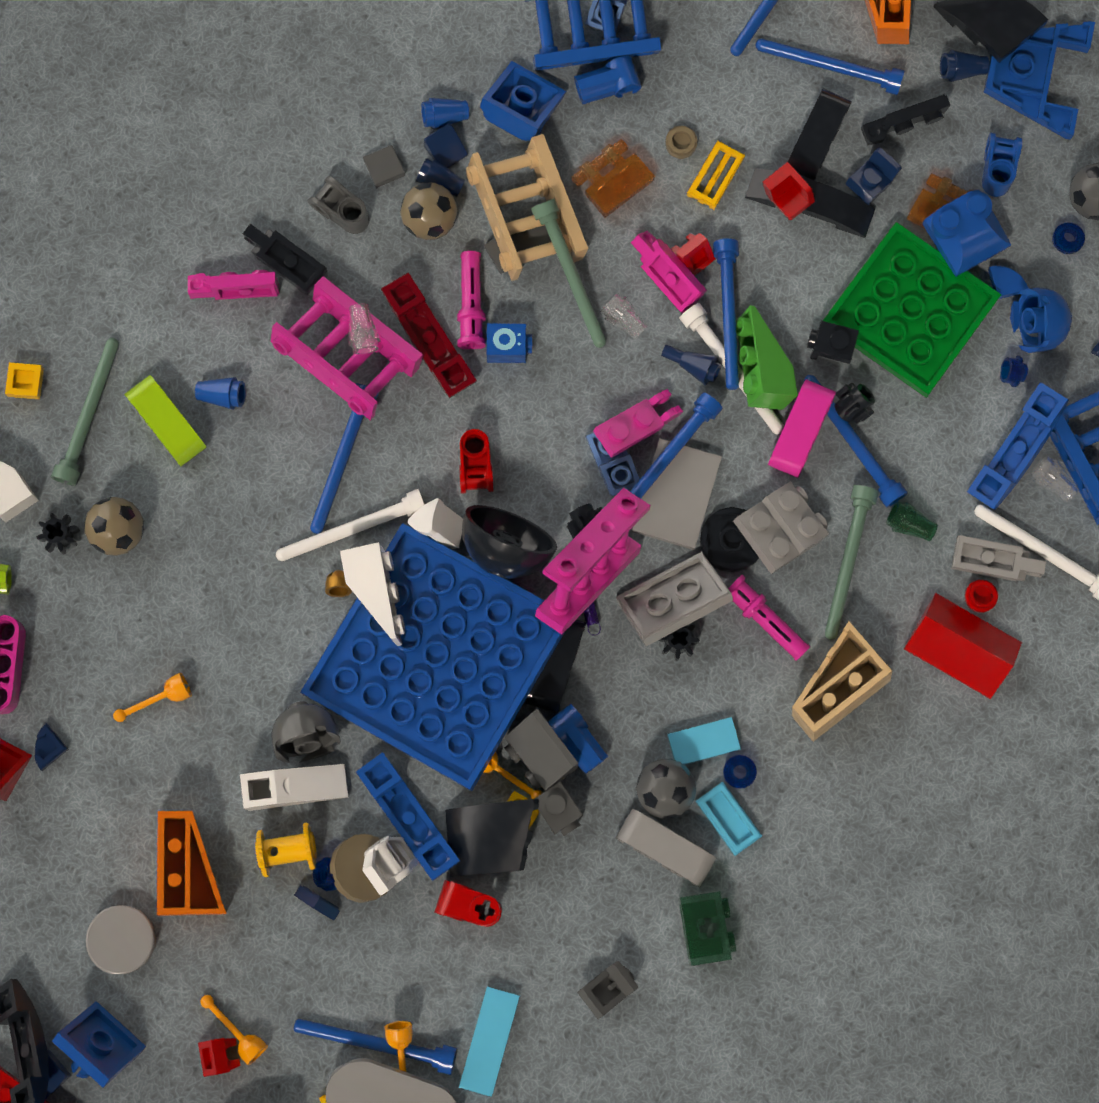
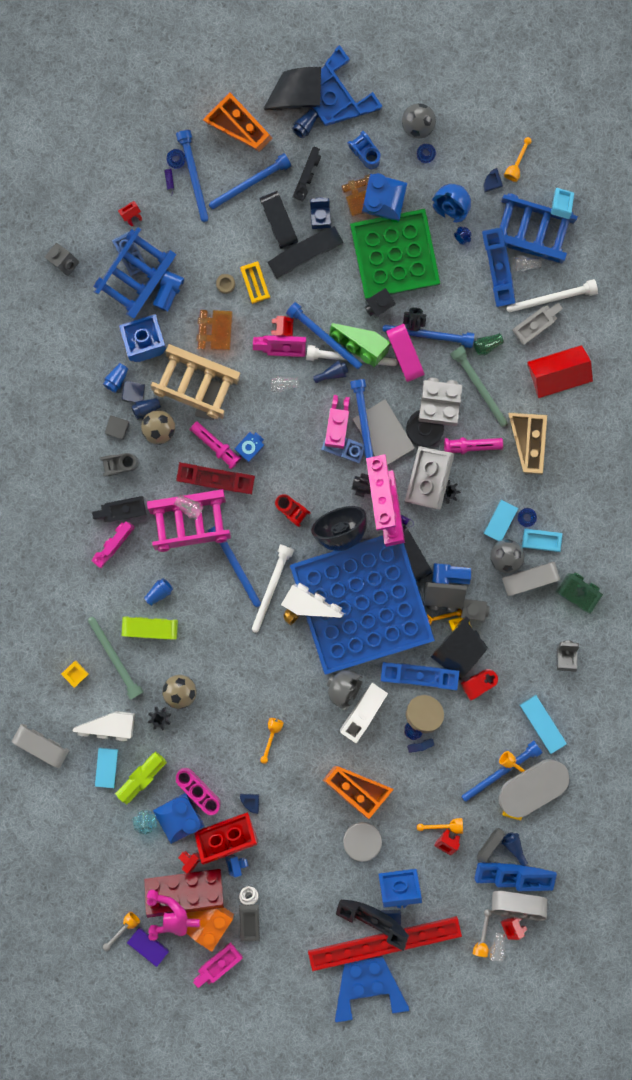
camera: 45 degrees left, 10 degrees up
(290, 849) = (388, 737): yellow hose -> none
(388, 863) = (435, 701): white piece -> none
(439, 523) = (304, 550): white tile -> none
(547, 215) = (209, 377): sand green piece -> none
(788, 191) = (295, 259): red panel -> none
(981, 596) = (546, 343): red plate -> none
(1006, 281) = (420, 199): blue tile -> none

